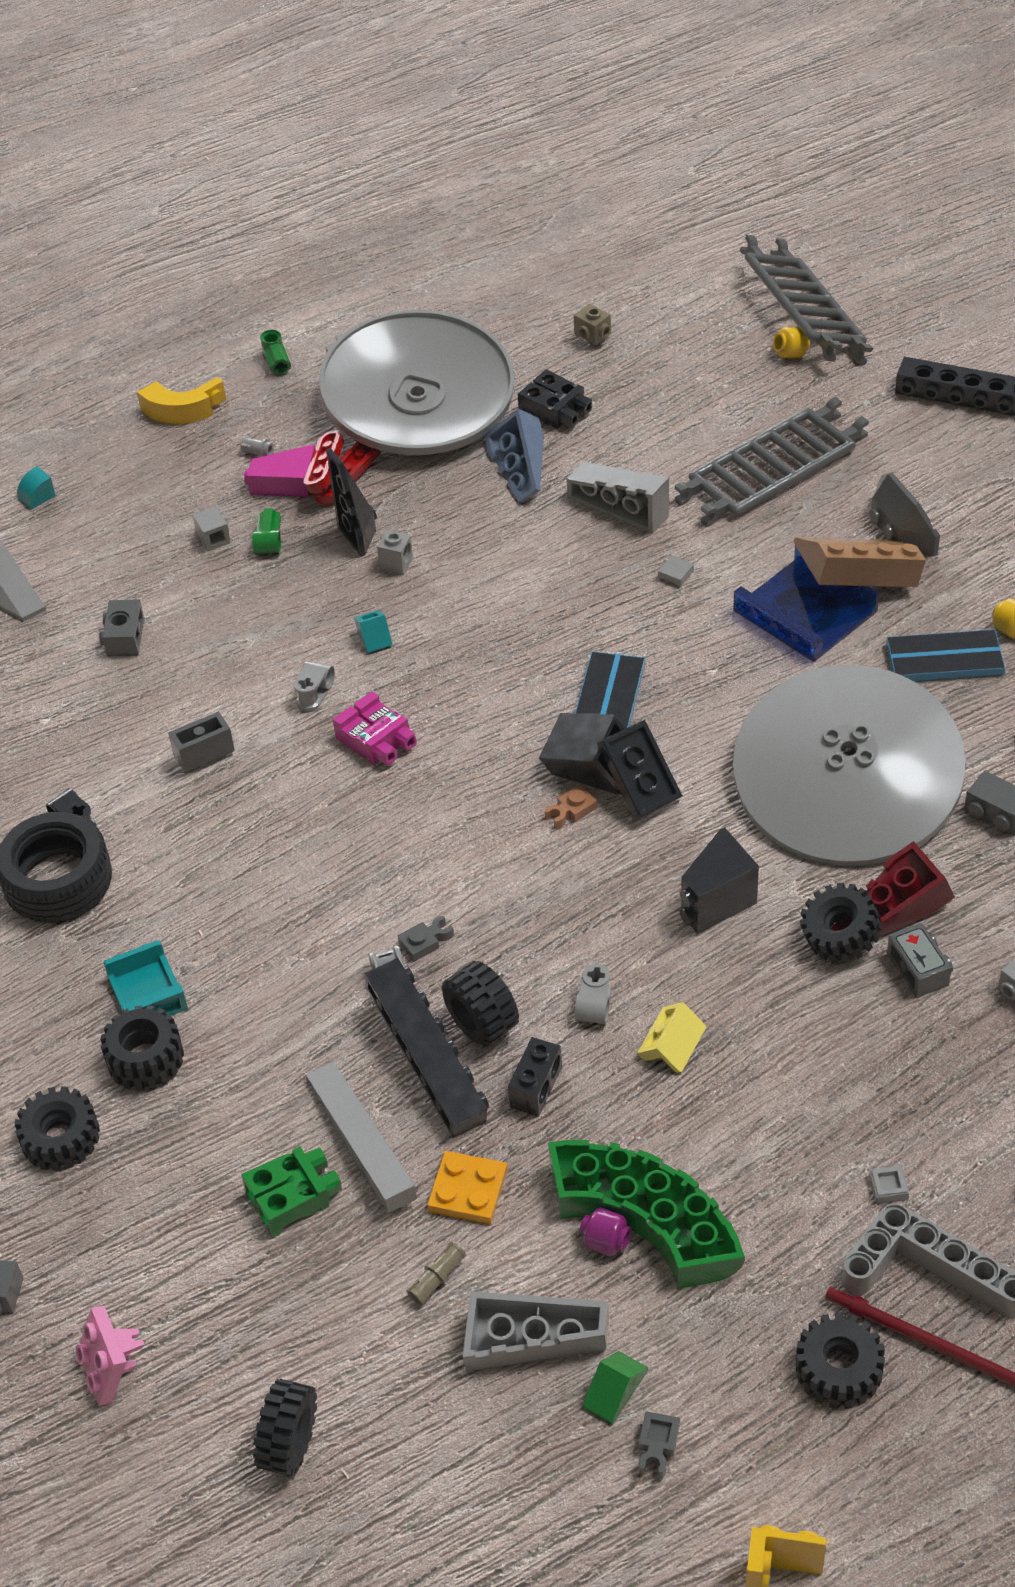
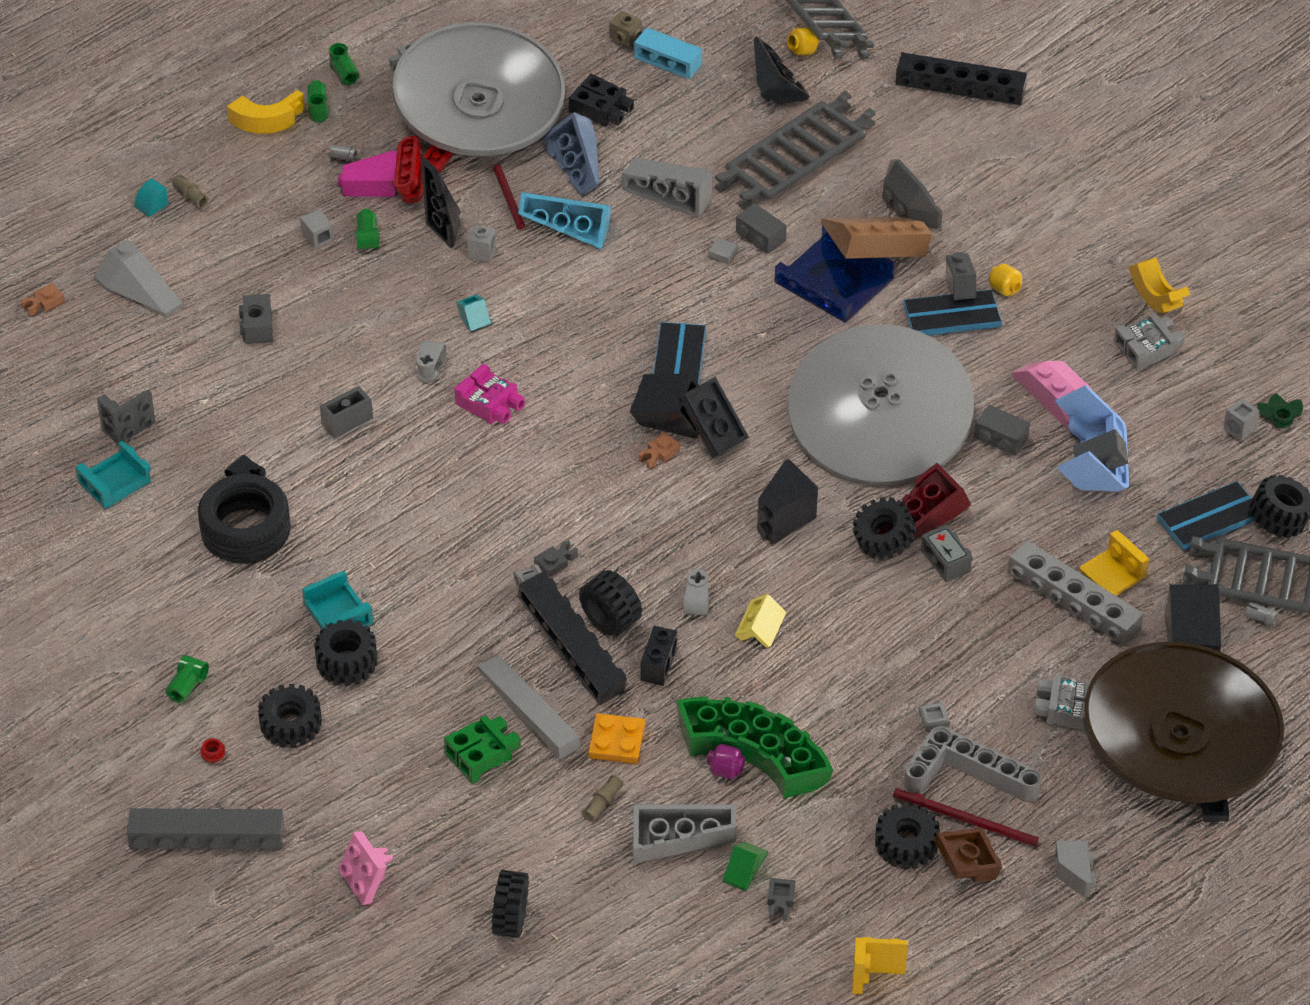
camera: 10 degrees left, 0 degrees up
(80, 482) = (190, 191): none -> dark tan pin
(239, 391) = (317, 101): none -> green piece
(436, 502) = (508, 196): none -> dark red bar
(507, 527) = (575, 218): none -> medium azure wedge
(637, 351) = (668, 53): none -> medium azure brick
(722, 547) = (761, 228): none -> dark grey brick
(755, 381) = (774, 77): none -> black wedge
(923, 1399) = (969, 854): none -> reddish brown plate
(958, 611) = (960, 276): none -> dark grey brick

